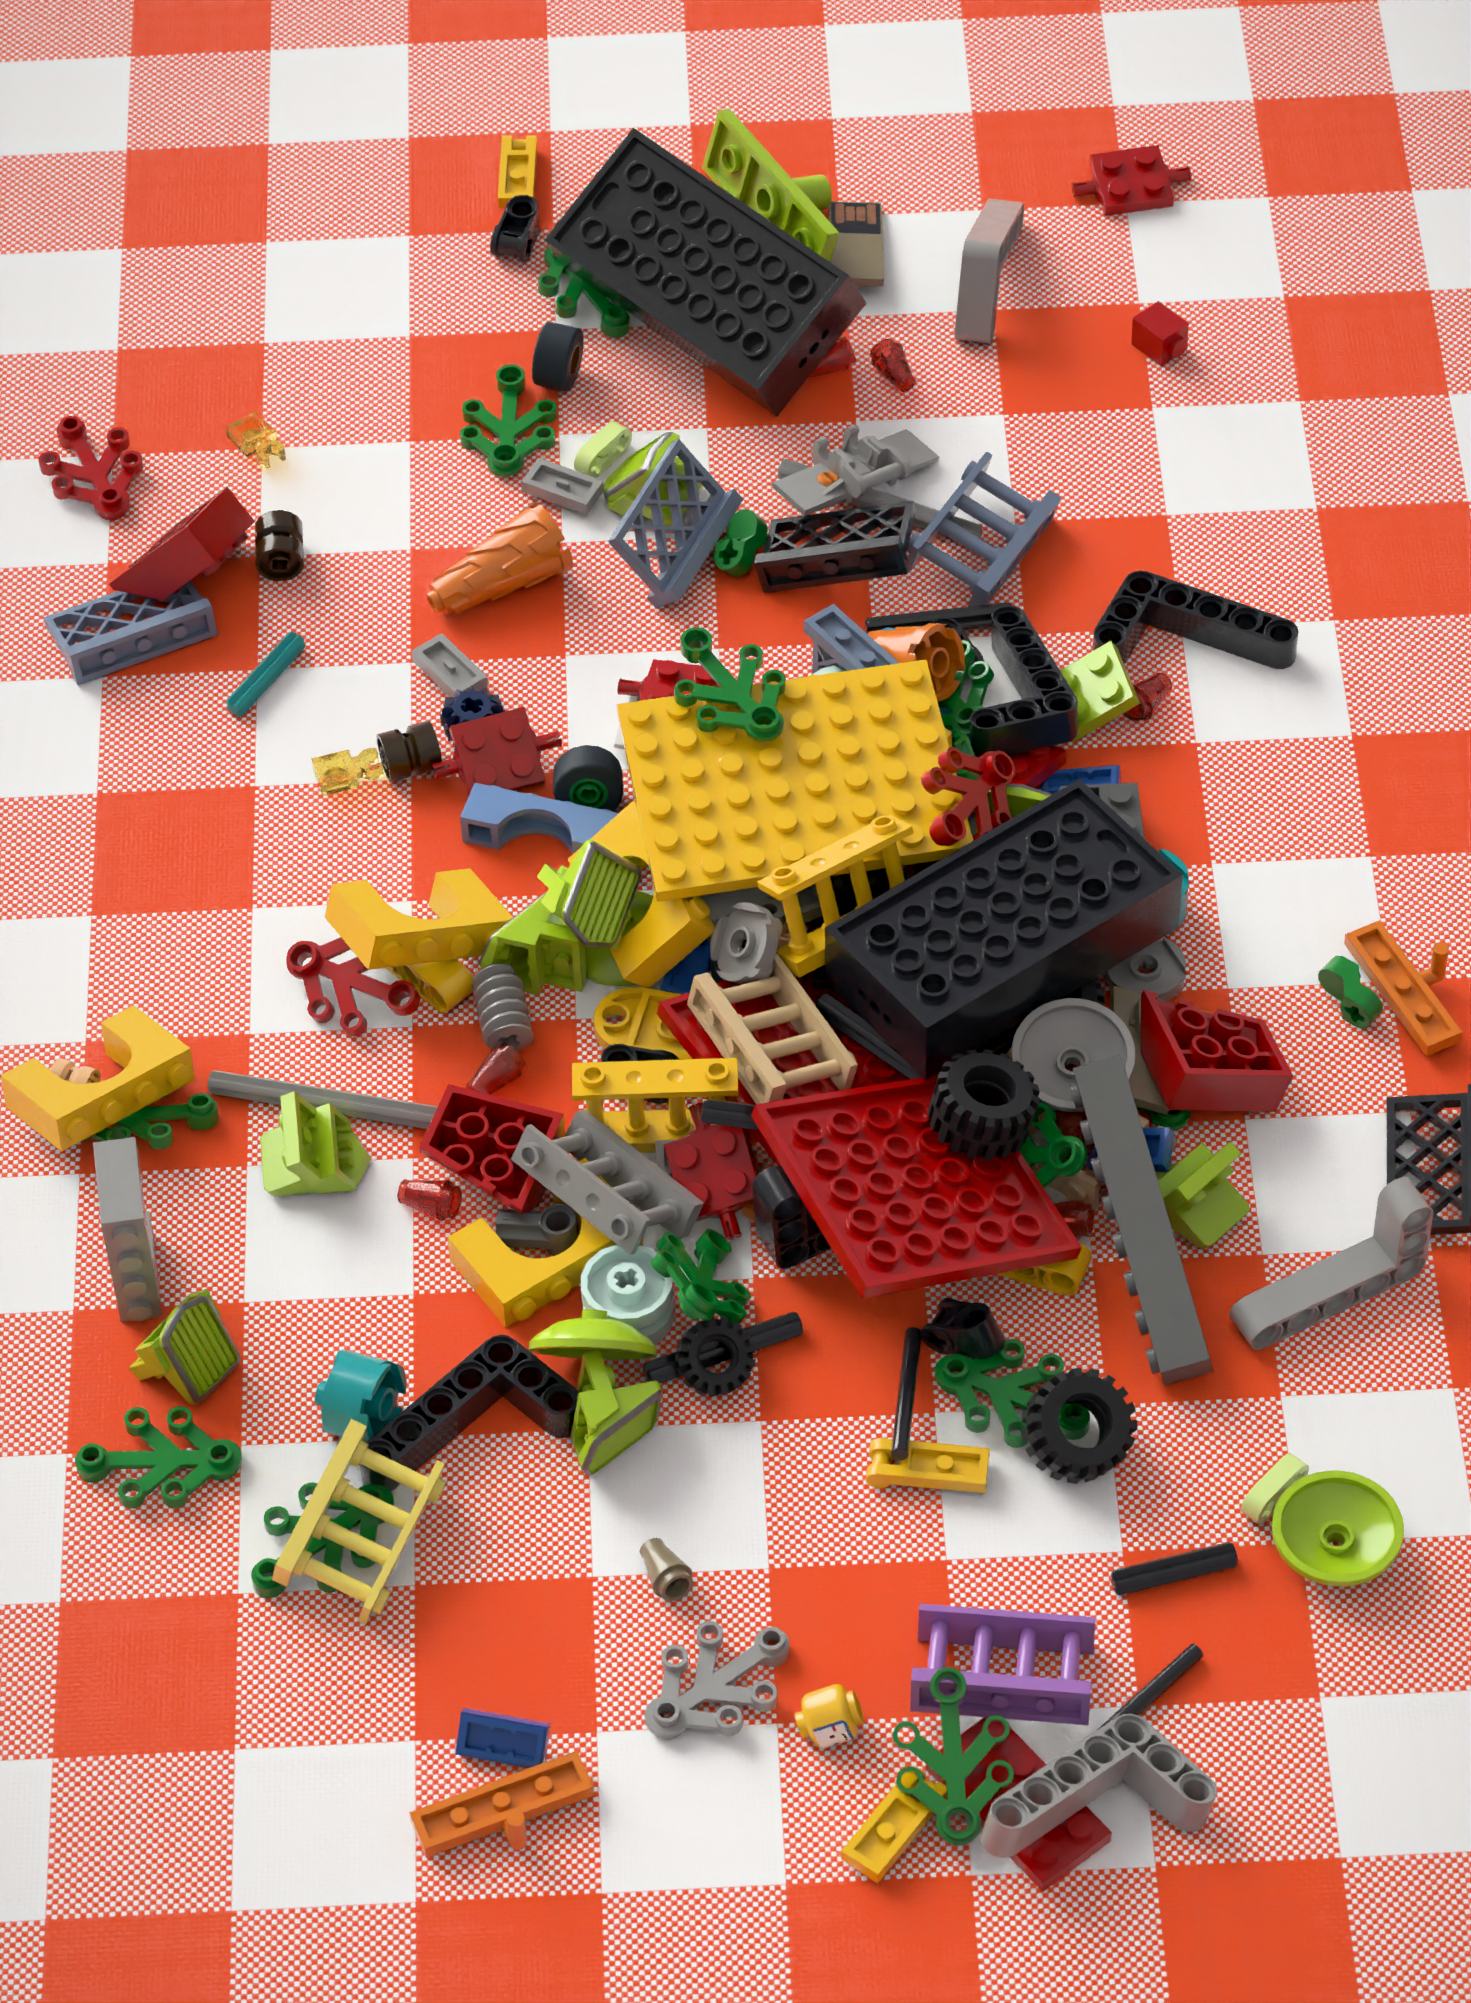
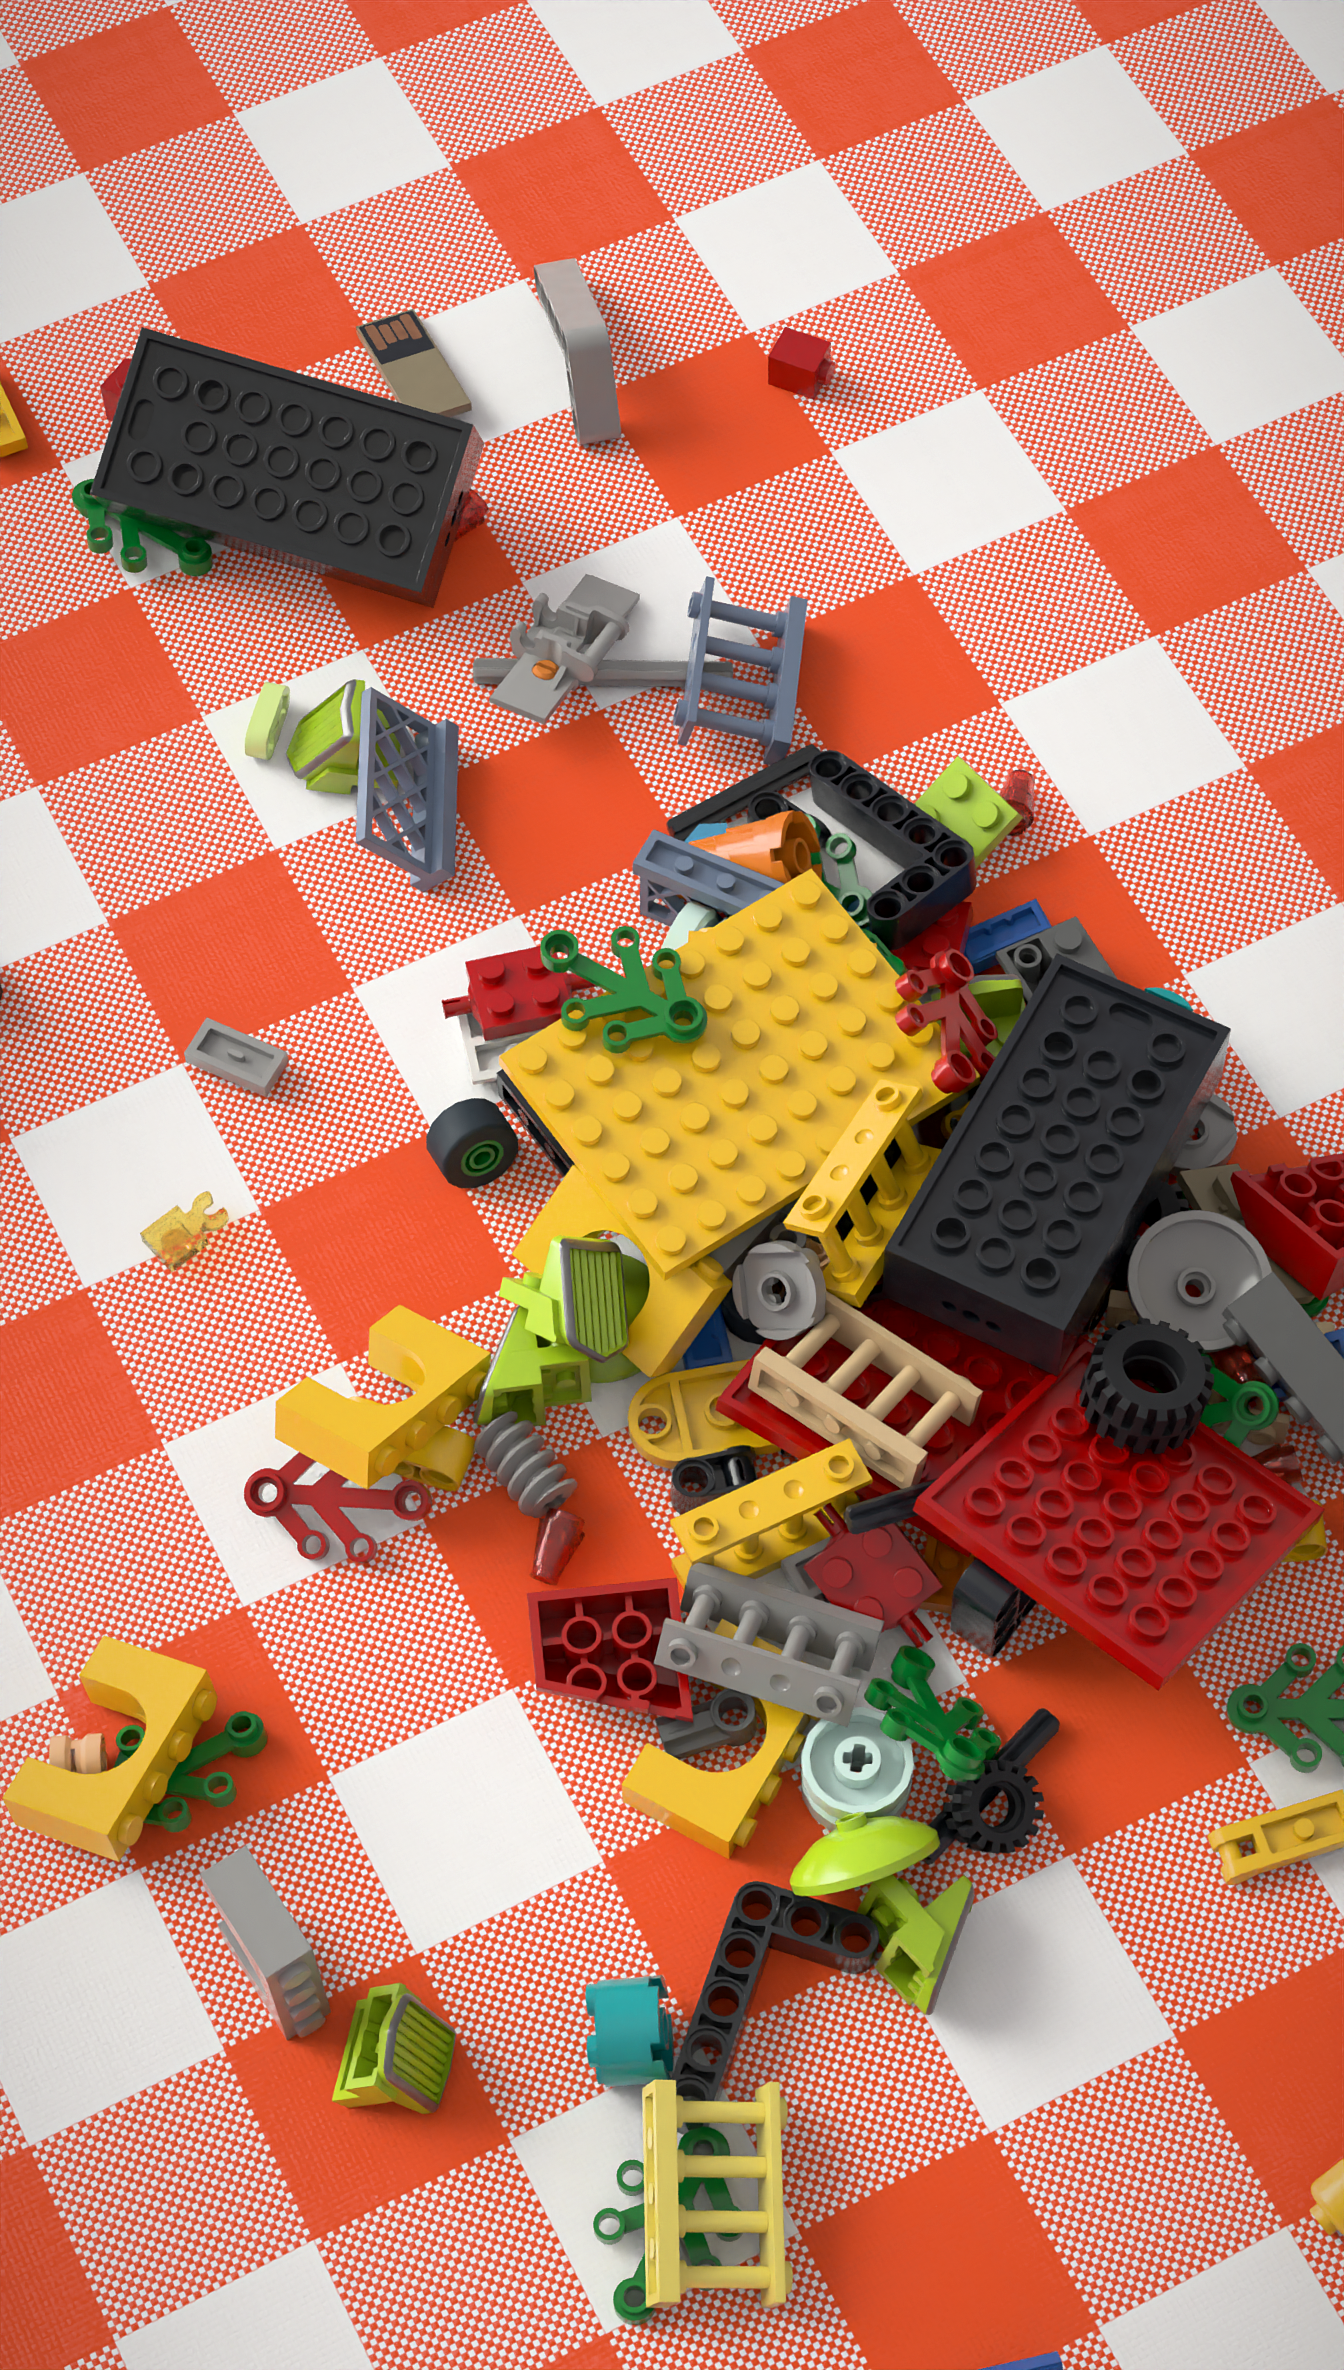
camera: 25 degrees left, 10 degrees up
(163, 1461) = (438, 2201): green plant -> none
(265, 674) = (26, 1143): teal axle -> none
(311, 1151) = (403, 1737): lime piece -> none
(347, 1103) = (378, 1659): light grey axle -> none
(408, 751) = (252, 1177): dark brown wheel -> none
(432, 1197) = (565, 1734): clear red cone -> none
(468, 707) = (297, 1109): dark blue gear -> none
(497, 752) = (350, 1147): red plate -> none
(500, 815) = (393, 1218): medium blue arch -> none
(505, 457) = (141, 731): green plant -> none
(514, 557) = (241, 895): orange cone -> none
(517, 229) = (27, 480): black piece -> none
(557, 356) = (160, 625): black wheel -> none
(562, 486) = (244, 781): light grey plate -> none
(666, 1571) = (1073, 2093): dark tan cone -> none
(714, 1686) = (1197, 2216): light grey plant -> none
(737, 549) = (482, 780): green piece -> none
(754, 177) = (268, 329): lime plate -> none
(845, 560) = (603, 768): black fence -> none
(862, 1033) = (942, 1338): black axle -> none
(892, 363) = (531, 500): clear red cone -> none
(906, 1394) = (1218, 1760): black bar -> none
(963, 1330) = (1230, 1655): black piece -> none
(1131, 180) = (668, 190): red plate -> none
(1195, 615) = (1015, 694): black beam -> none

